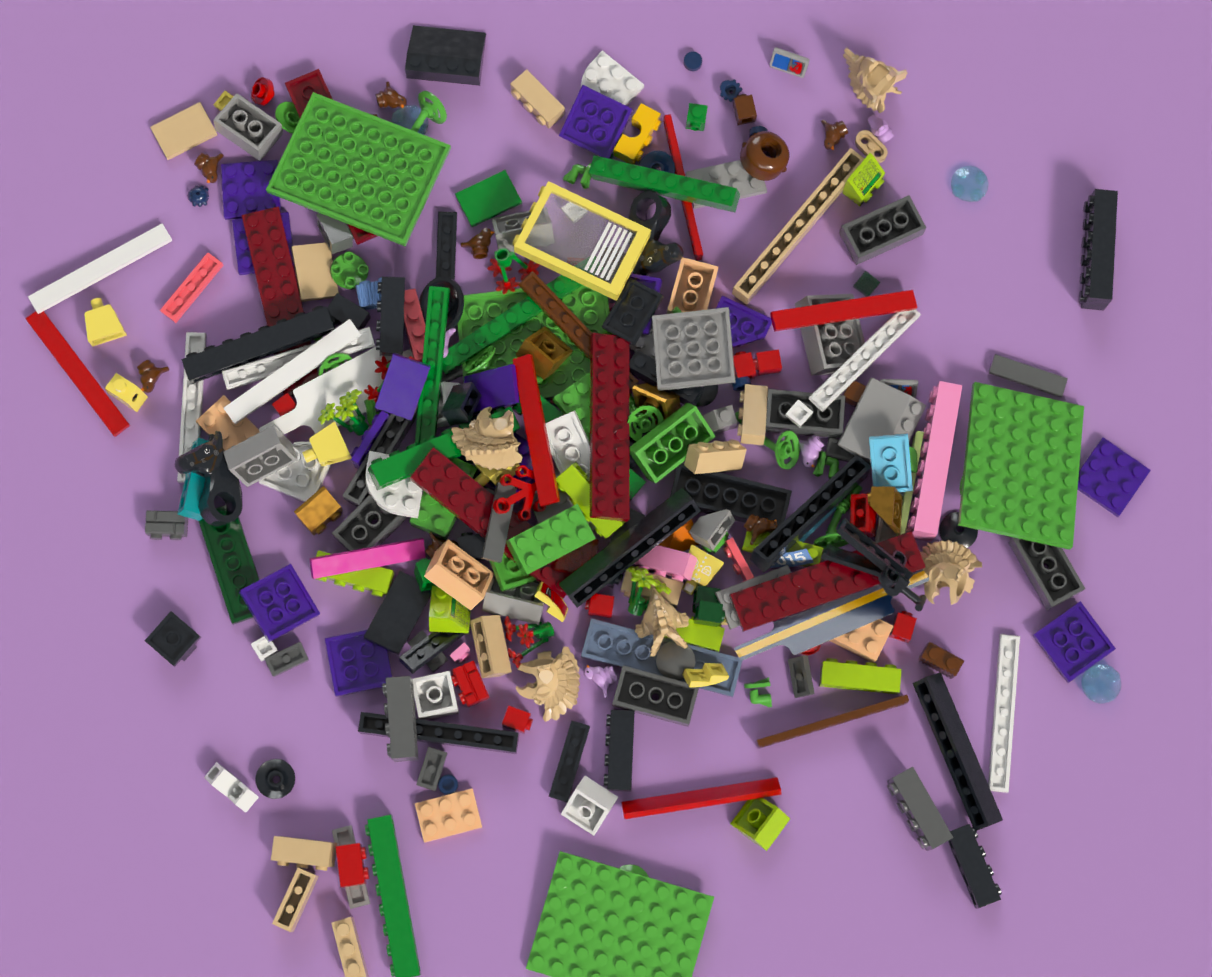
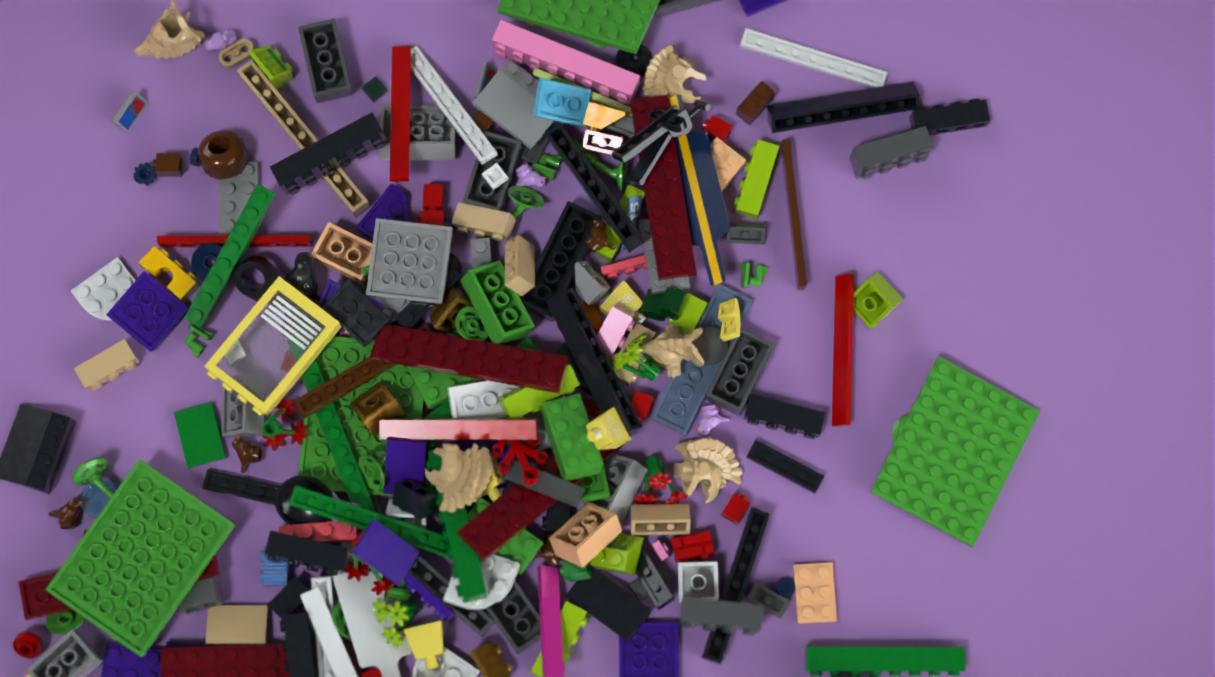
camera: 80 degrees left, 0 degrees up
(348, 270) = (244, 590): bright green dish -> none
(557, 606) = (632, 448): slope -> none
(562, 572) = (607, 431): none -> light yellow torso
(589, 805) = (831, 455): white slope -> none
(692, 61) = (104, 204): dark blue tile -> none
(696, 117) = (165, 212): green brick -> none
(783, 250) = (329, 154): none -> black brick
(833, 133) = (214, 85): reddish brown animal -> none

